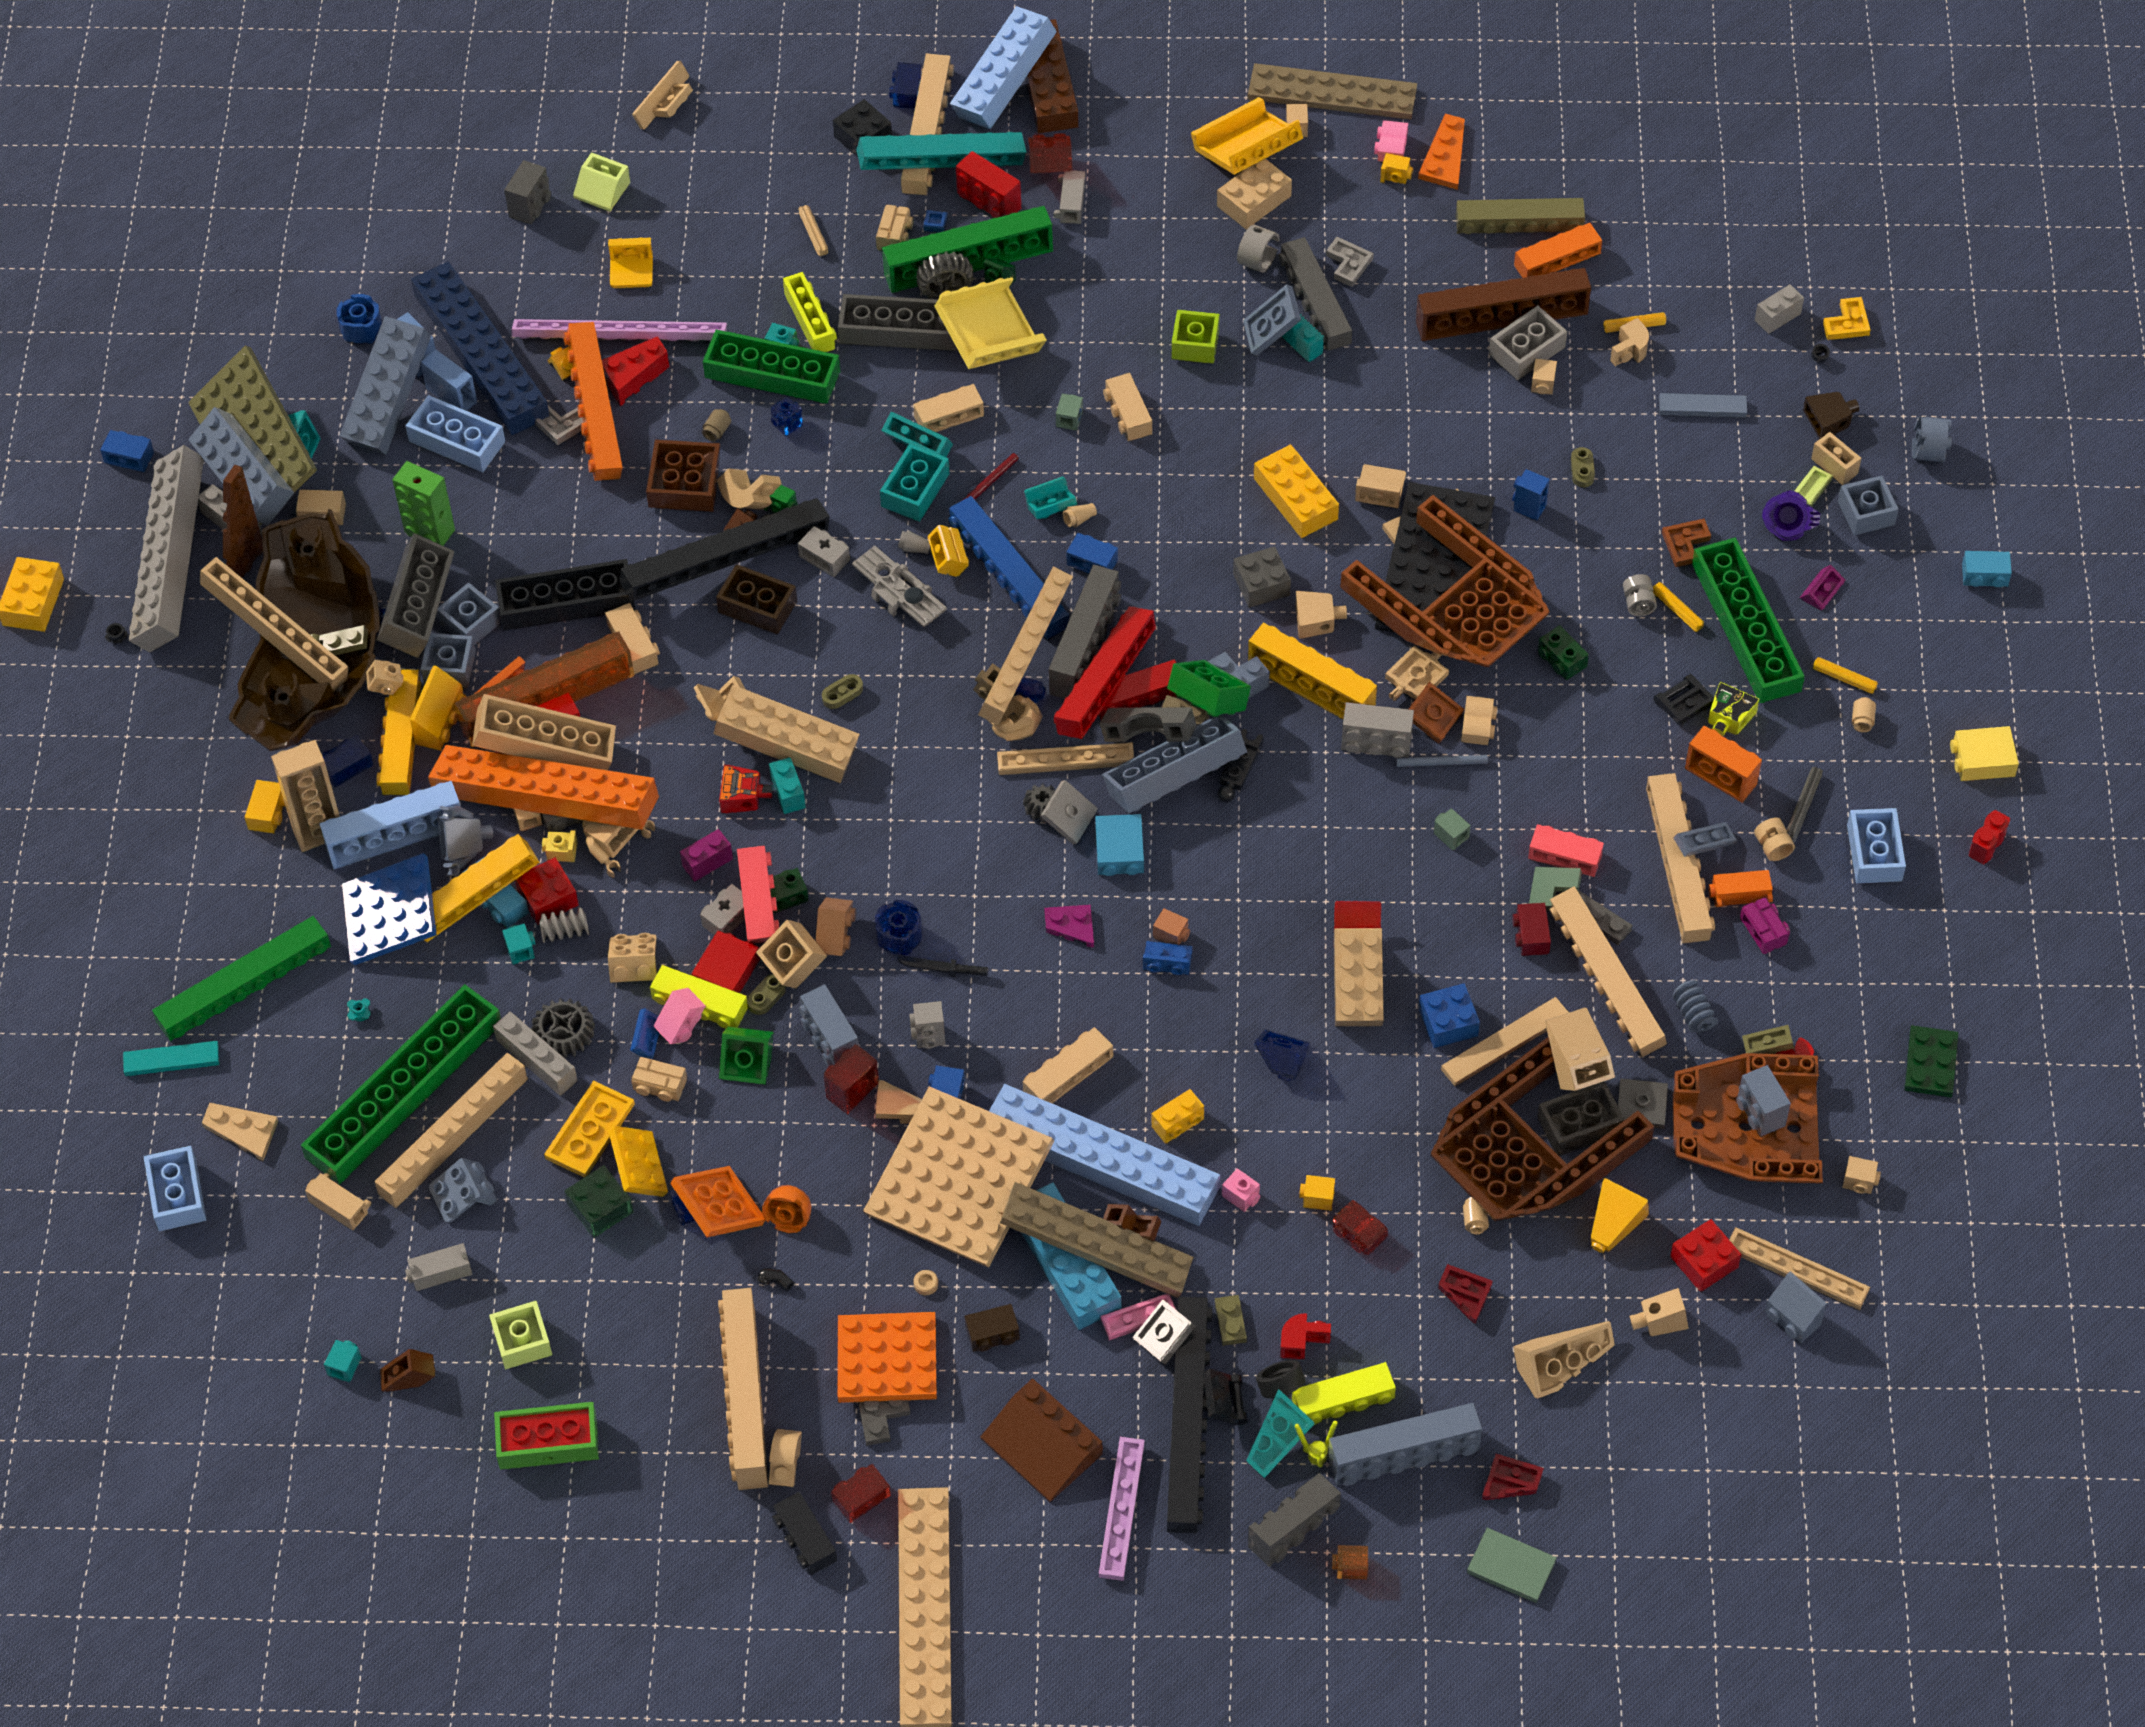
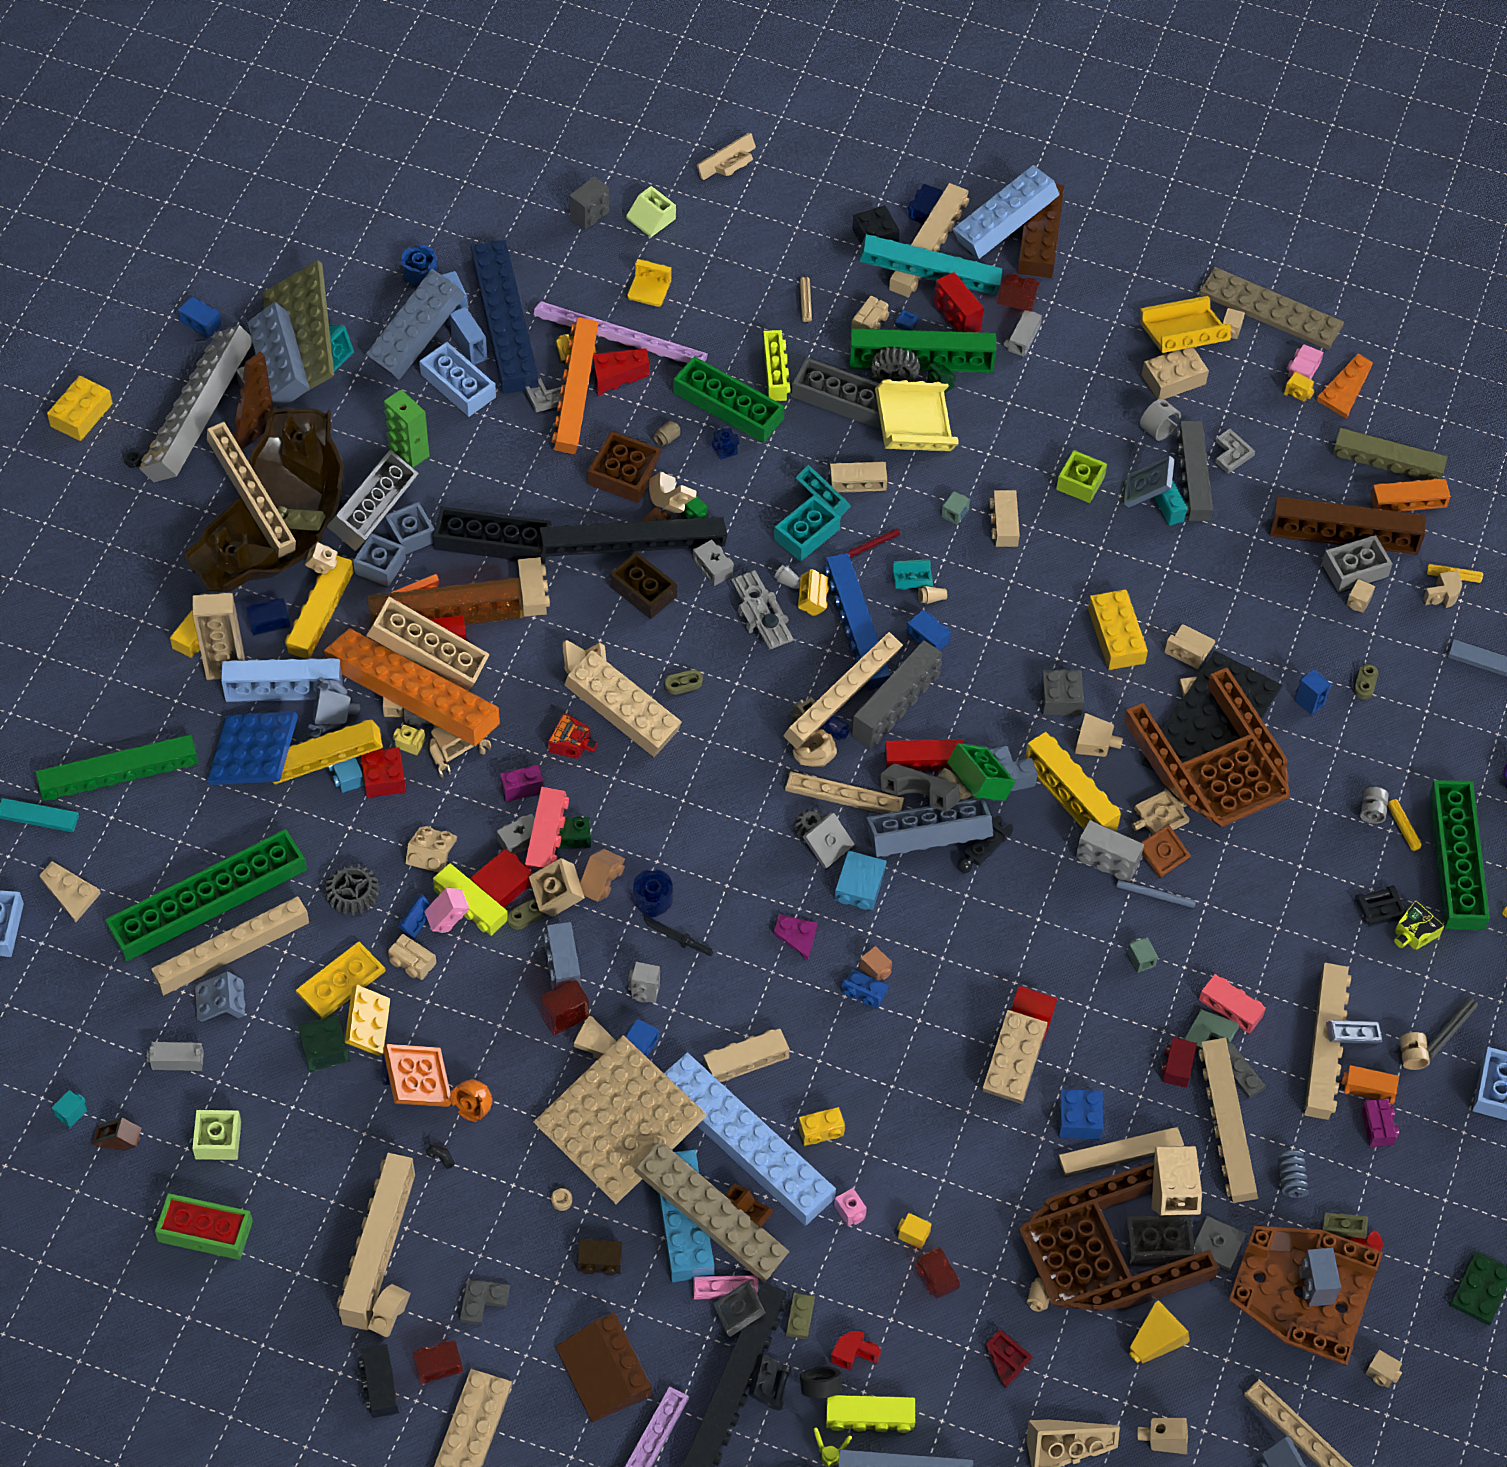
camera: 15 degrees right, 0 degrees up
(320, 501) = (338, 405): tan brick -> none
(336, 1201) = (118, 975): tan brick -> none
(359, 1015) = (198, 827): teal plate -> none
(436, 710) = (350, 599): yellow slope -> none
(519, 943) = (345, 808): teal brick -> none
(535, 1053) = (321, 904): light grey brick -> none
(563, 924) = (385, 805): light grey piece -> none
(745, 1055) = (489, 959): green slope -> none
(782, 334) = (747, 377): teal brick -> none
(787, 785) = (608, 746): teal brick -> none
(887, 1357) = (504, 1252): orange plate -> none
(1105, 672) = (900, 733): red brick -> none
(1277, 1434) = (799, 1429): teal wing -> none
(1282, 1053) = (928, 1101): clear blue slope -> none
(1477, 720) = (1198, 869): tan brick -> none
(1562, 652) = (1291, 834): dark green brick -> none
(1682, 536) = (1428, 767): dark orange plate -> none
(1705, 1255) = (1223, 1395): red brick -> none
(1723, 763) = (1393, 971): orange brick -> none

